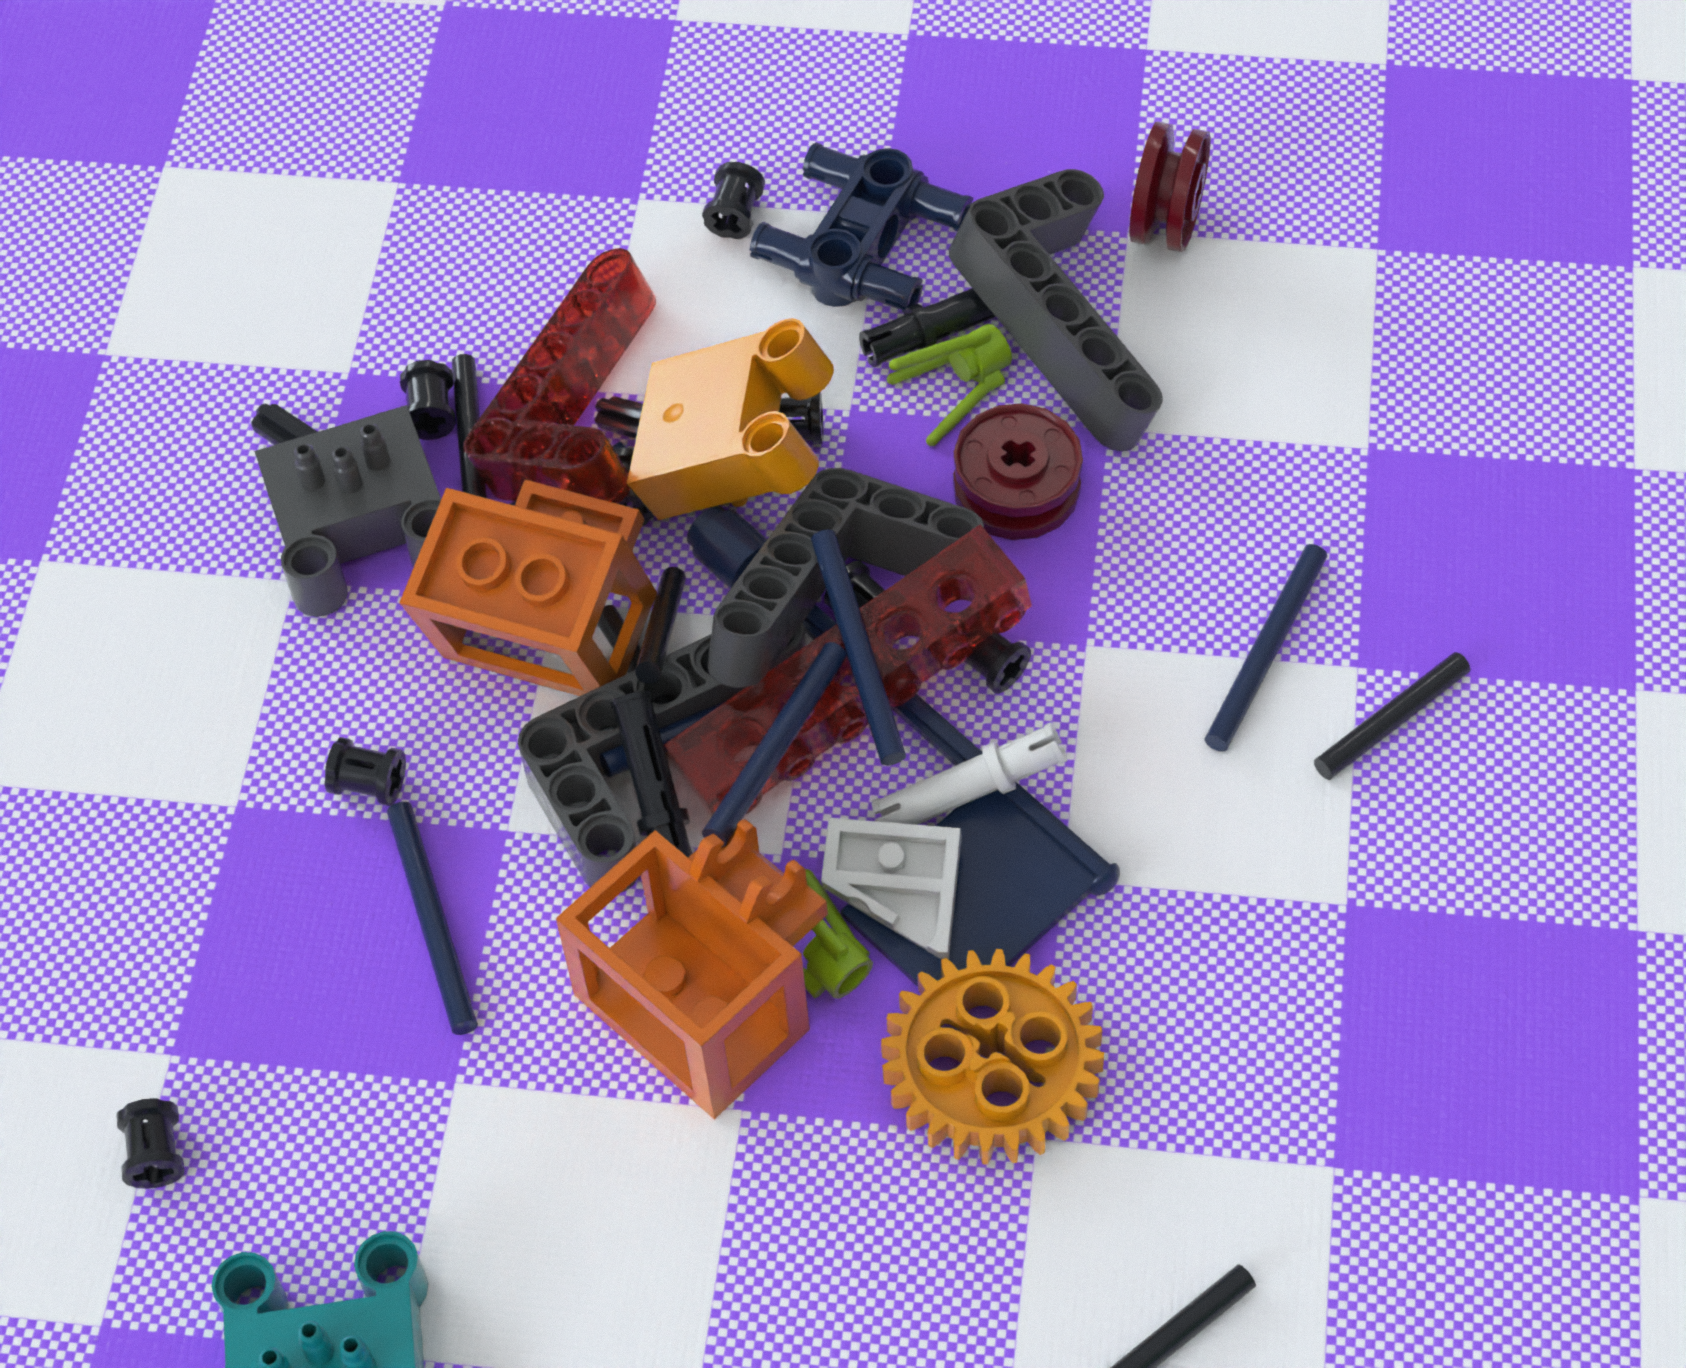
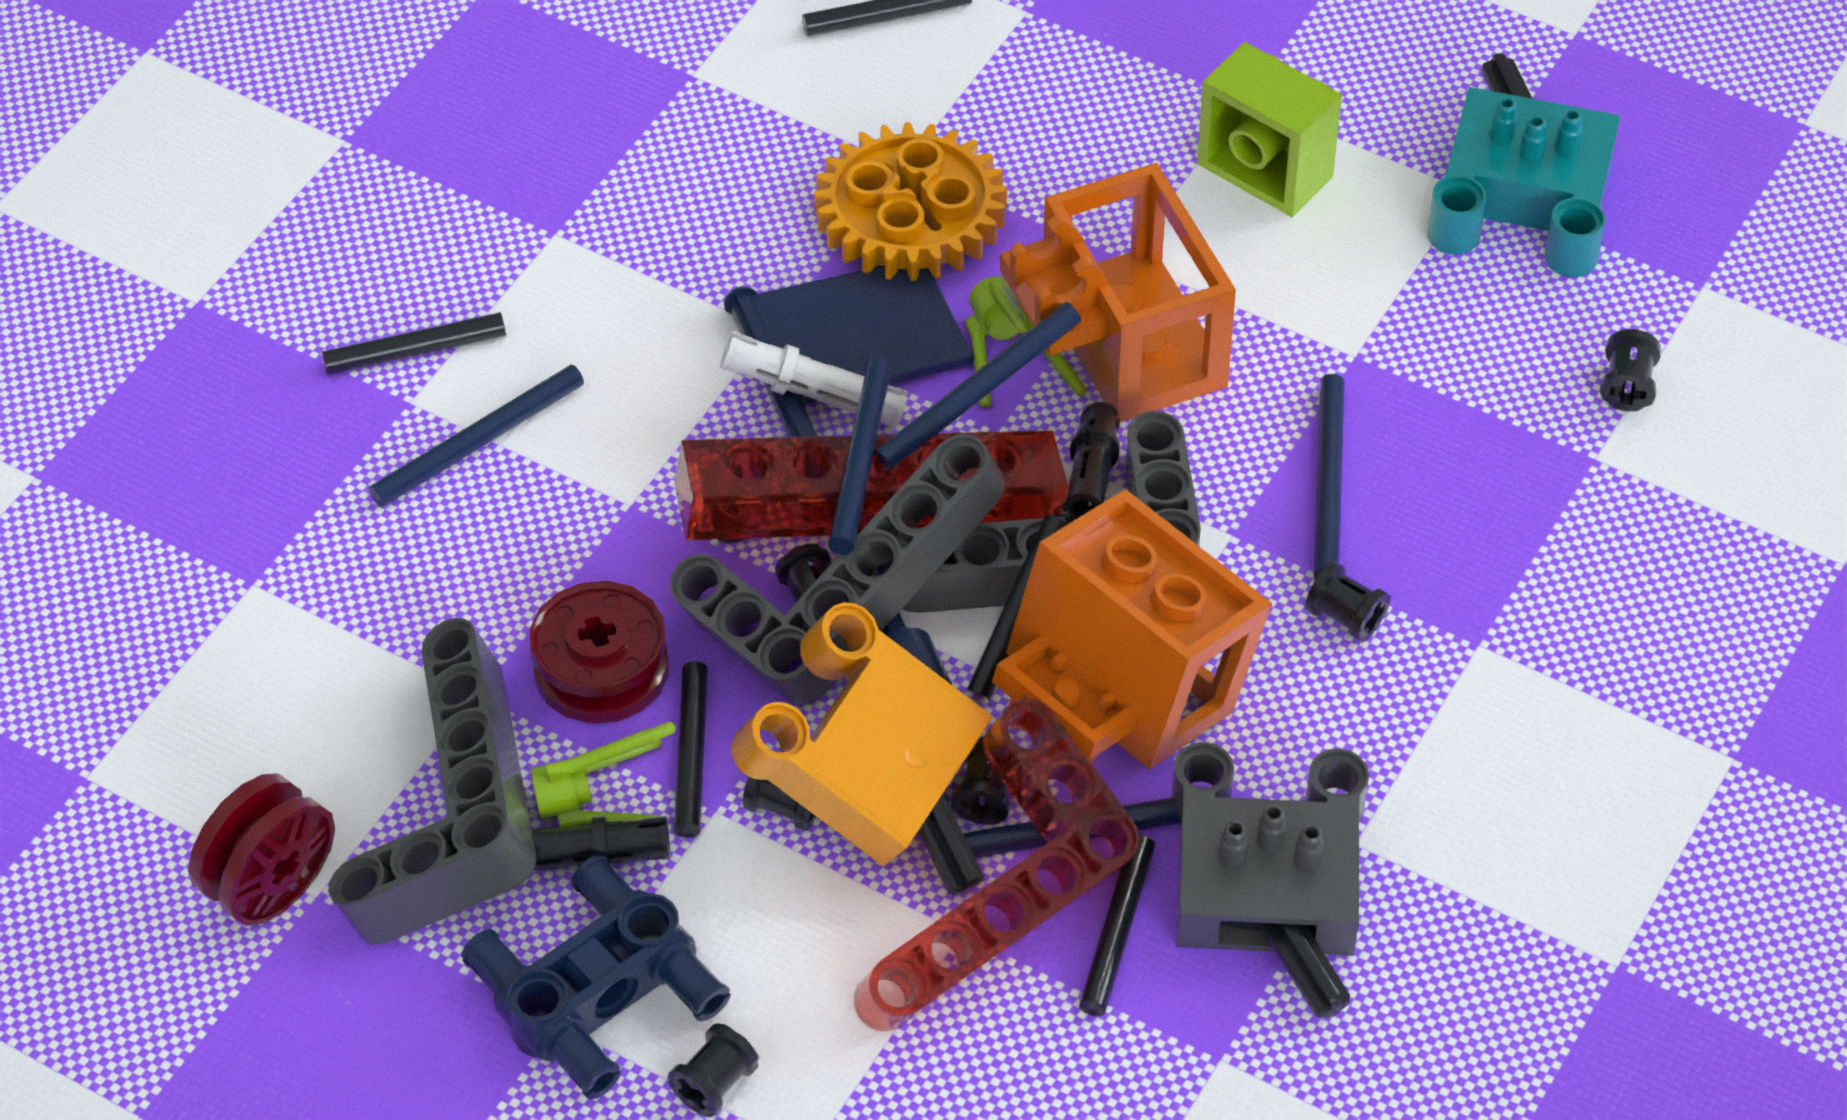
camera: 160 degrees left, 5 degrees down
(427, 400) = (1150, 957): black bush -> none
(629, 1267) = (1268, 128): none -> lime brick
(892, 433) = (691, 750): none -> black bar
(897, 876) = (915, 337): white wing -> none

